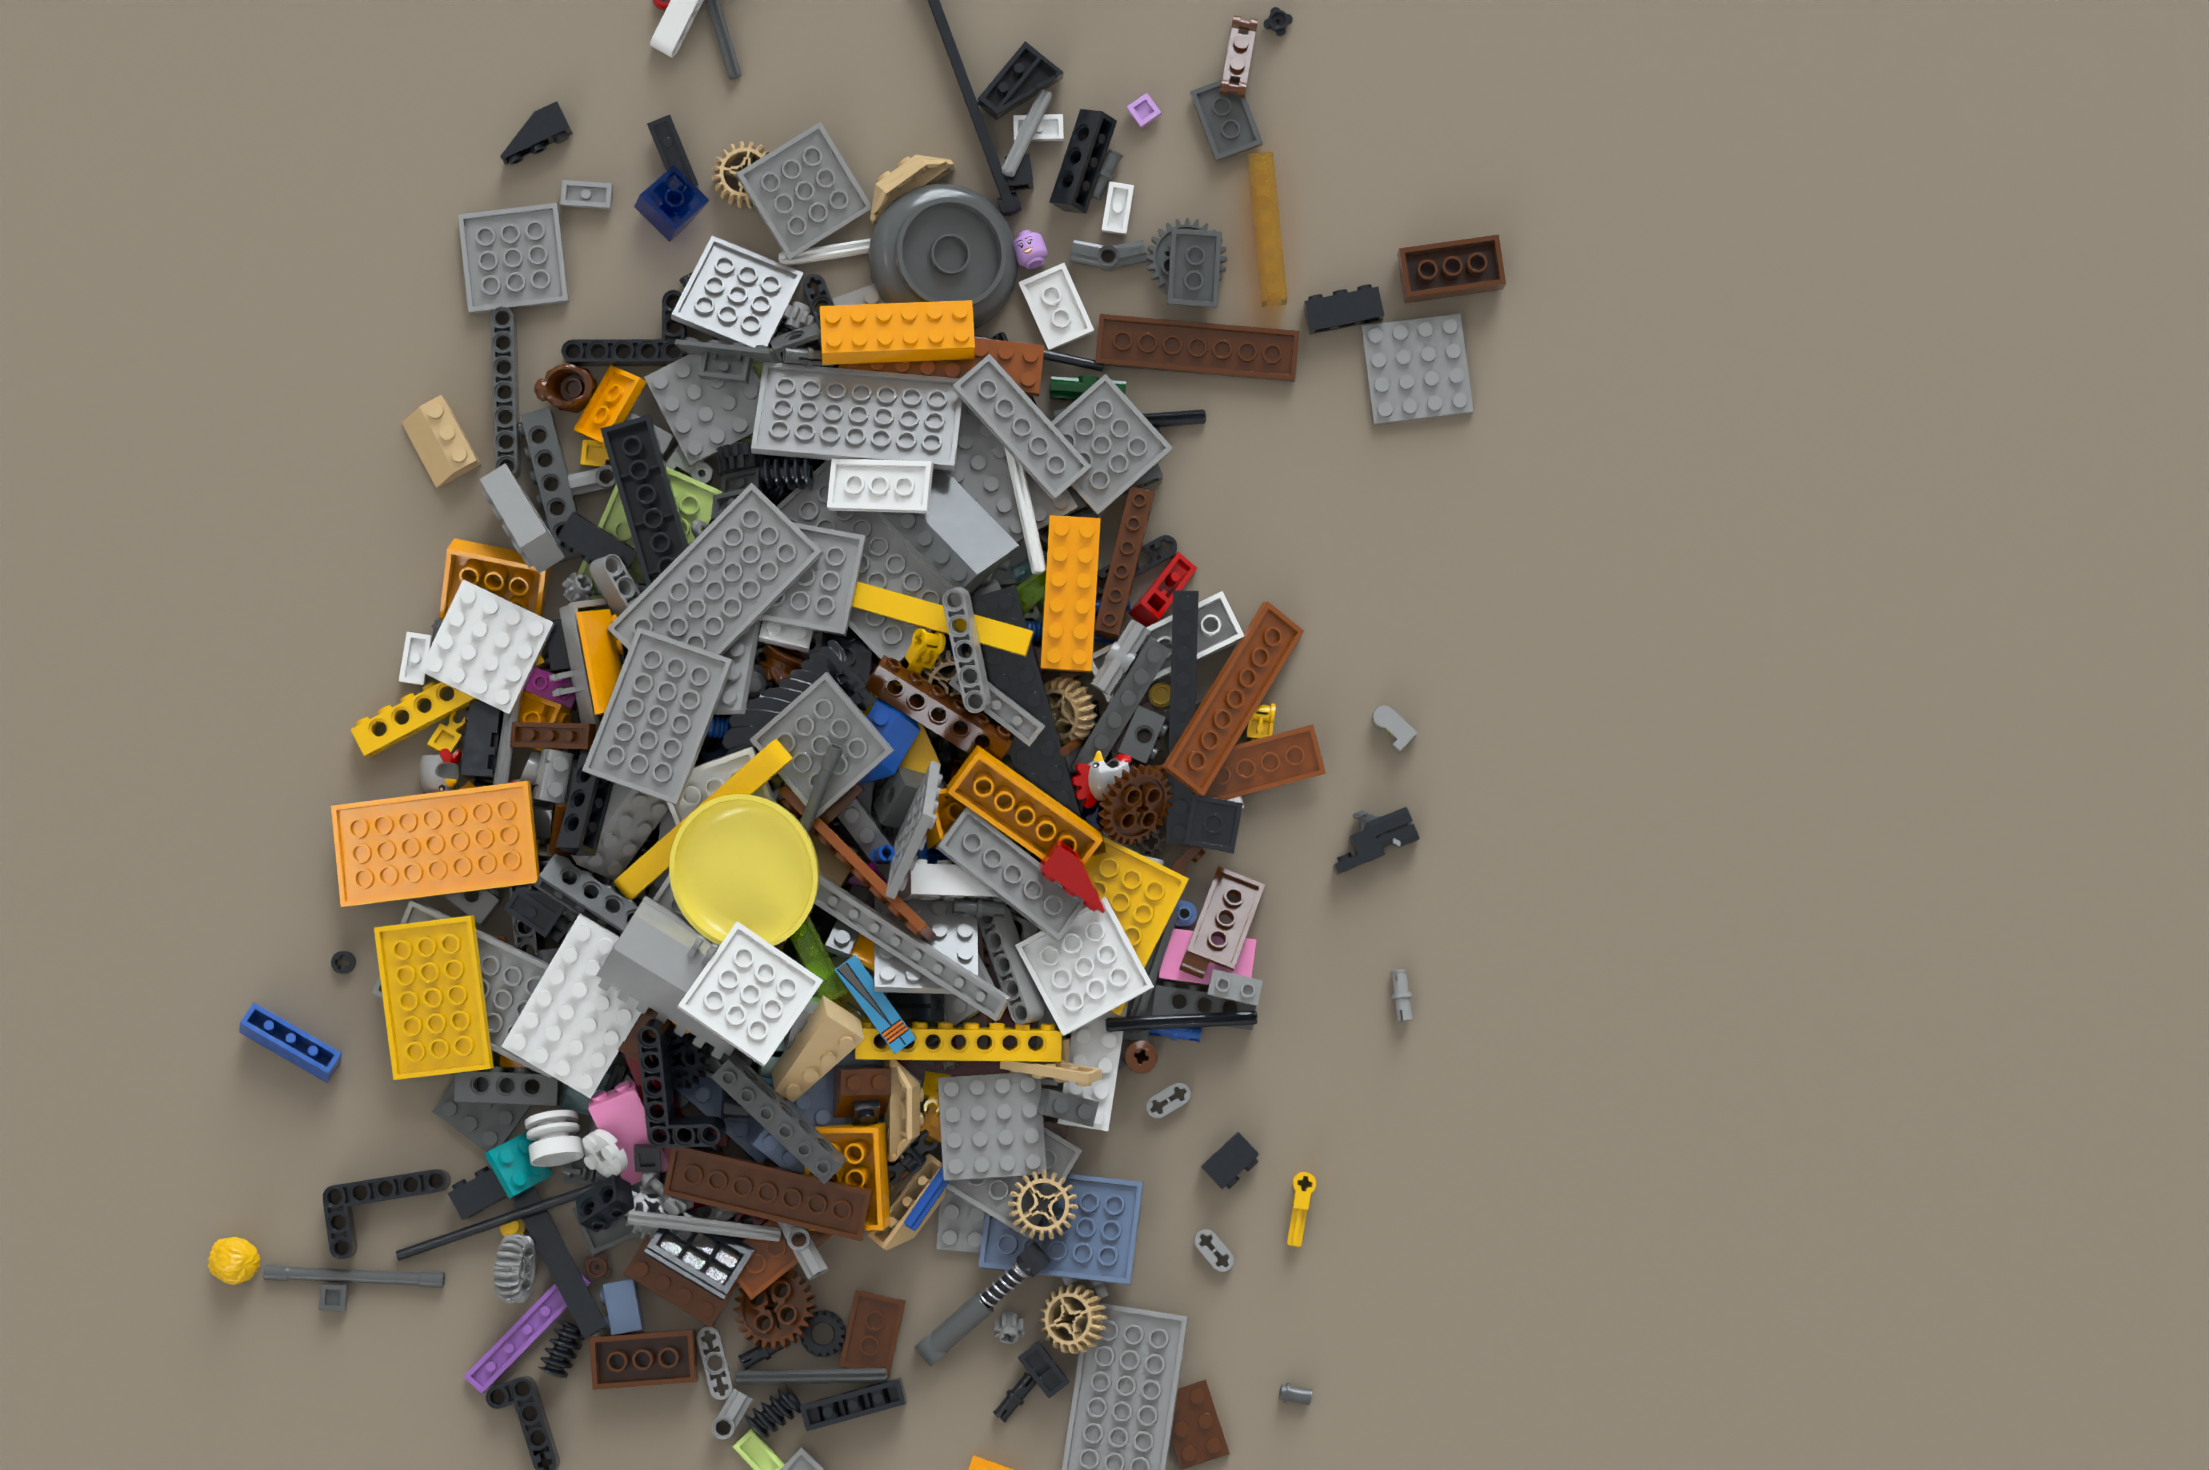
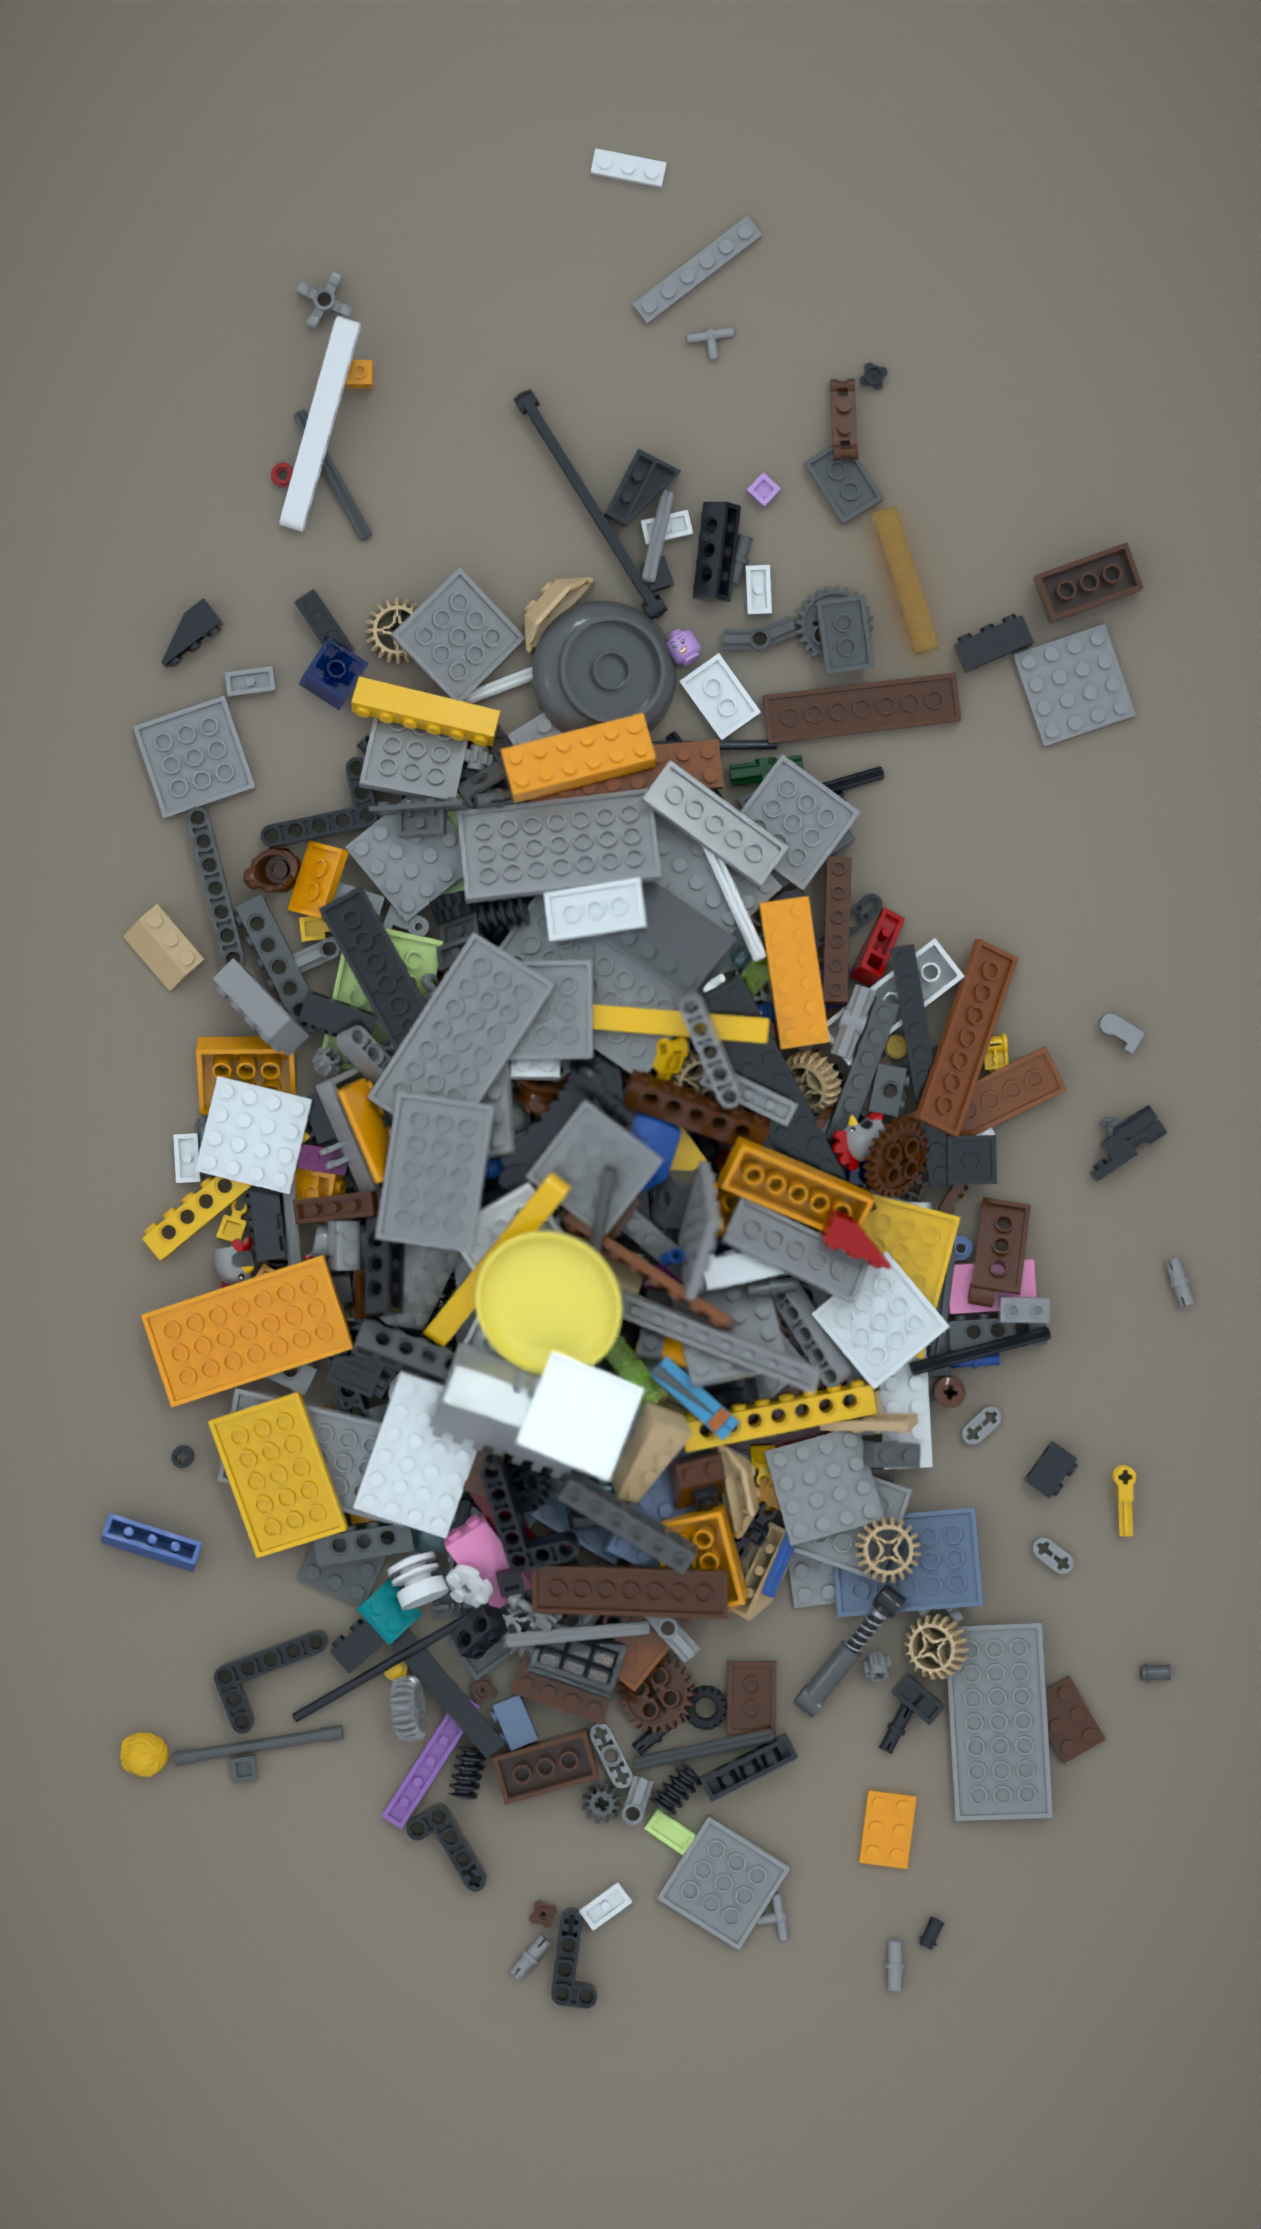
camera: 15 degrees left, 5 degrees up
(689, 1416) = (596, 1809): none -> dark grey gear
(755, 258) = (425, 711): none -> yellow brick

